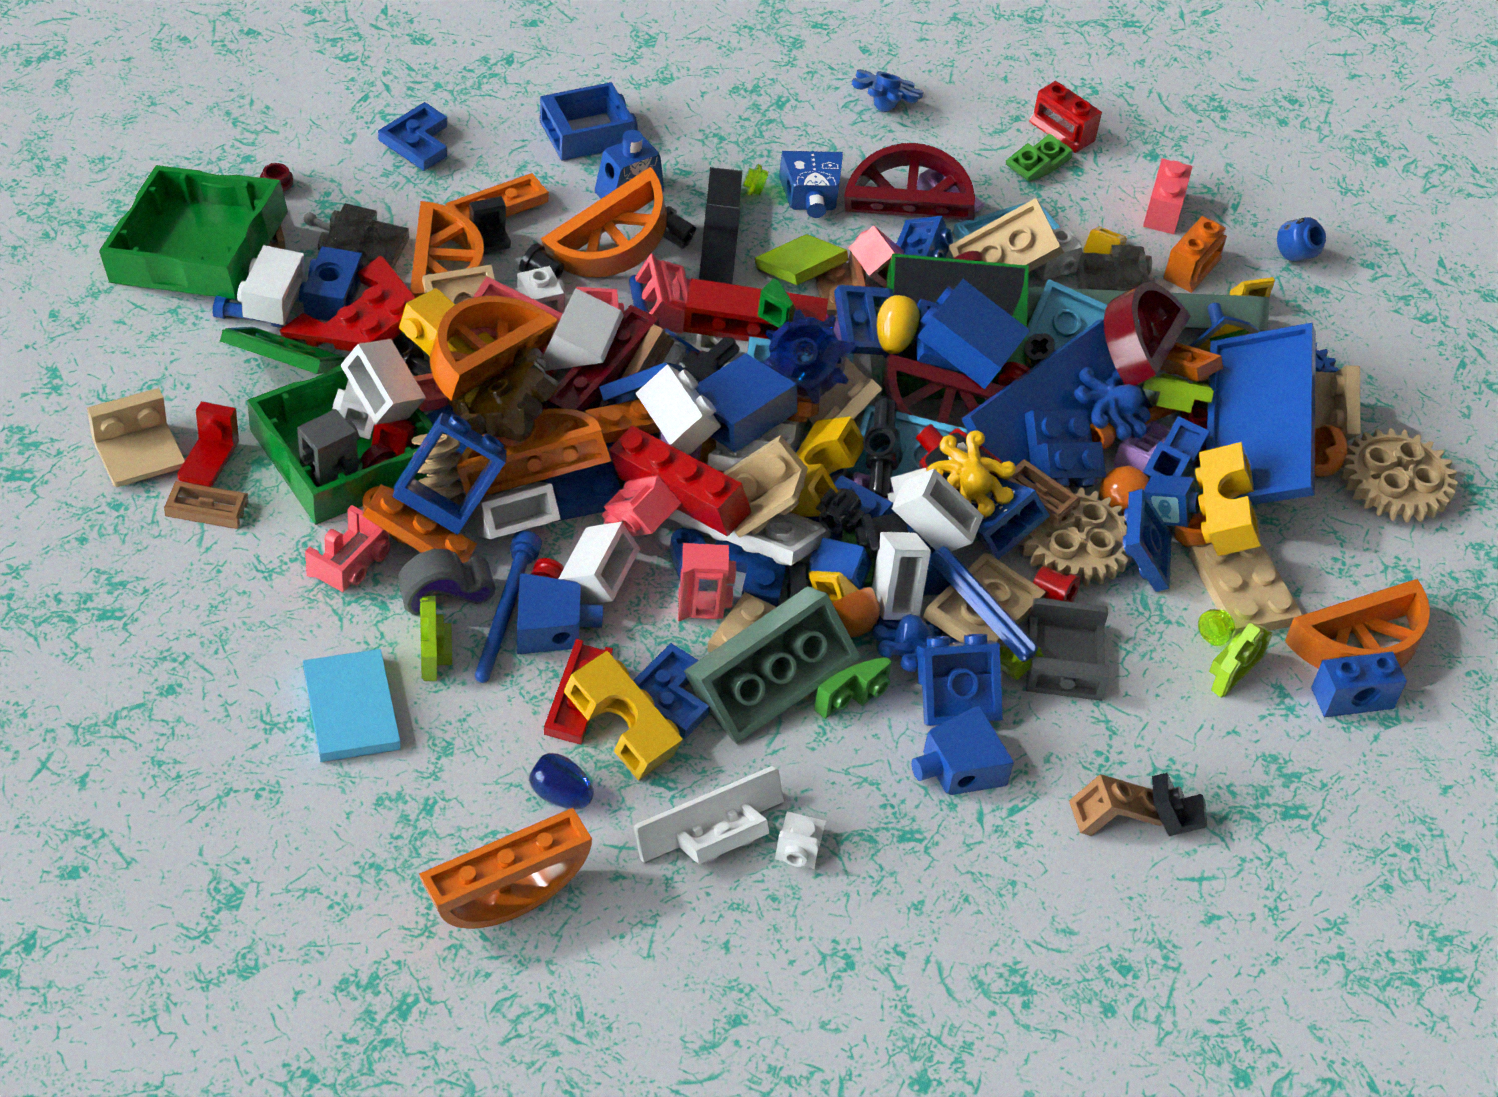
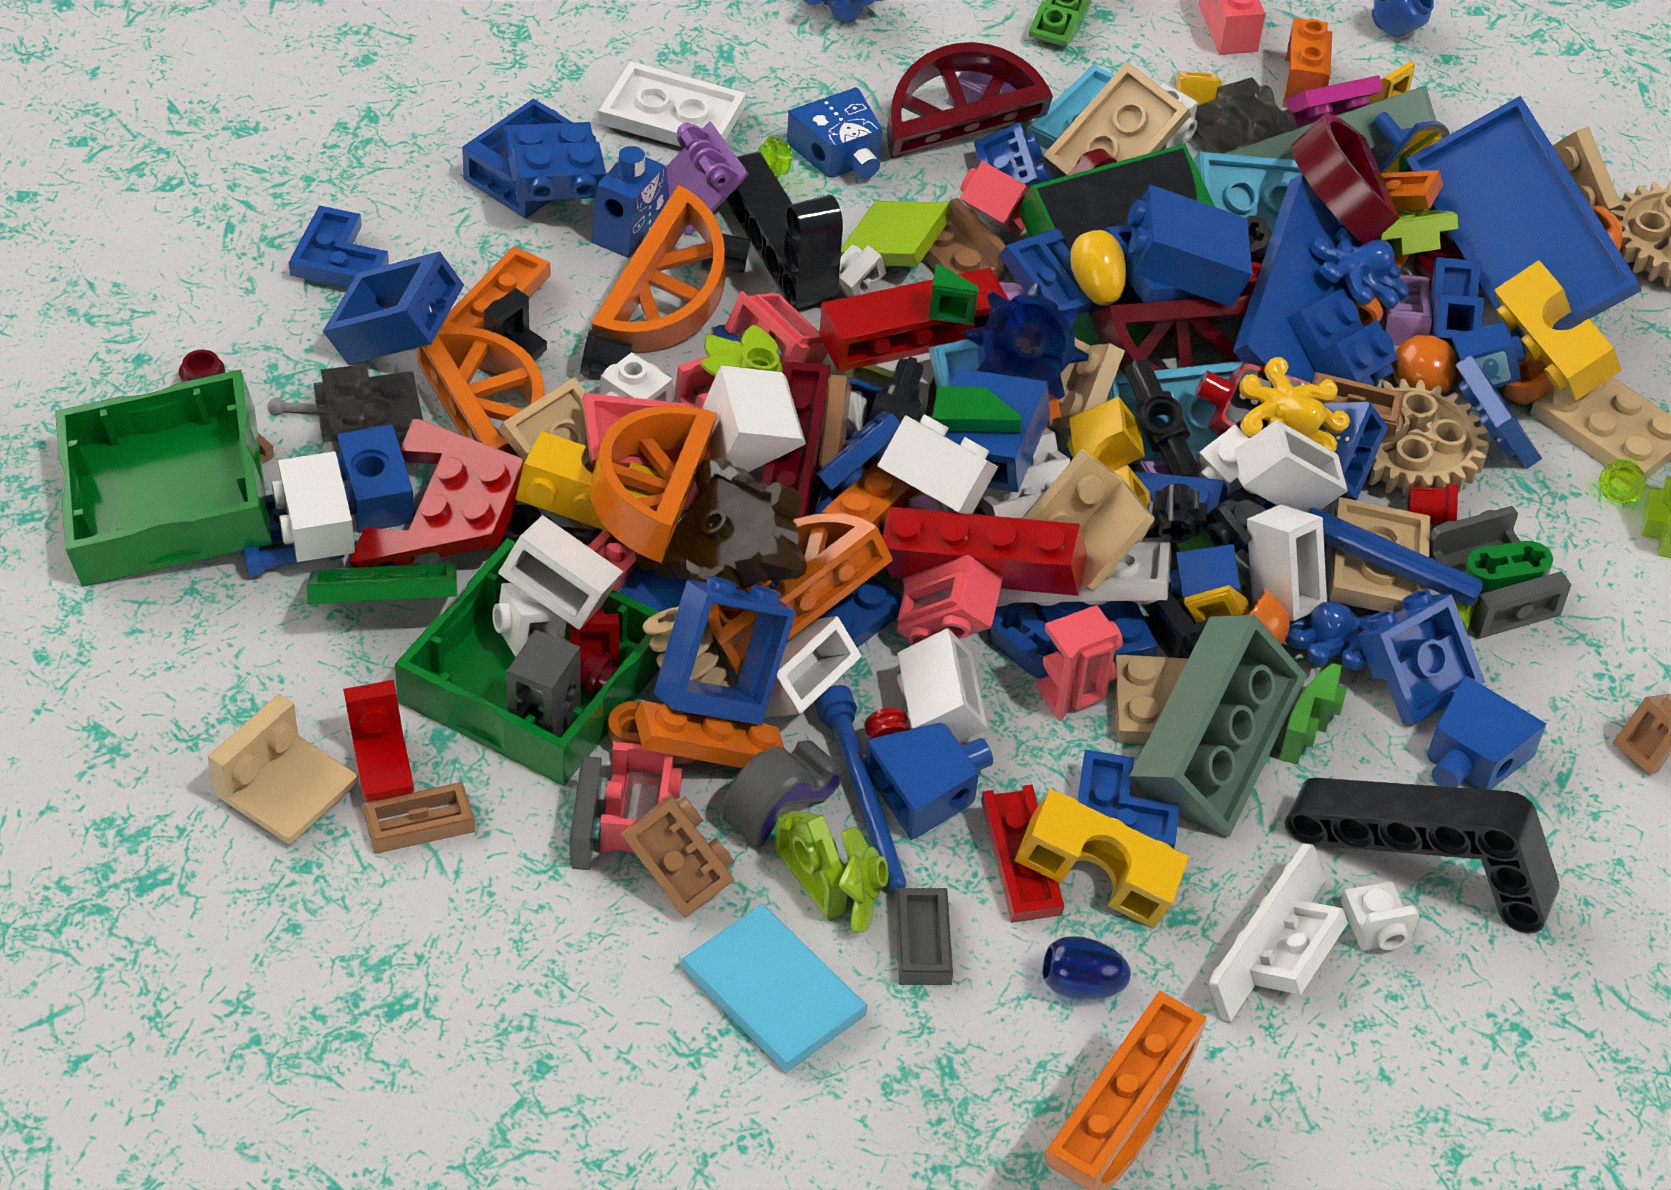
camera: 25 degrees left, 0 degrees up
(312, 535) = (585, 813): none -> dark grey tile
(344, 592) = (679, 854): none -> medium nougat bracket
(412, 180) = (367, 330): none -> blue window
(451, 658) = (862, 878): none -> lime plate
(474, 716) = (923, 936): none -> dark grey tile
(589, 124) = (554, 161): none -> blue plate
(622, 296) = (754, 351): none -> lime plate
(692, 171) = (704, 166): none -> medium lavender hinge
(710, 124) = (659, 101): none -> white plate
(726, 382) = (974, 410): none -> green tile
(753, 272) = (860, 270): none -> white bracket
(880, 796) = (1438, 821): none -> black beam
(1075, 645) = (1508, 564): none -> green beam
(1193, 282) = (1332, 99): none -> dark pink bracket

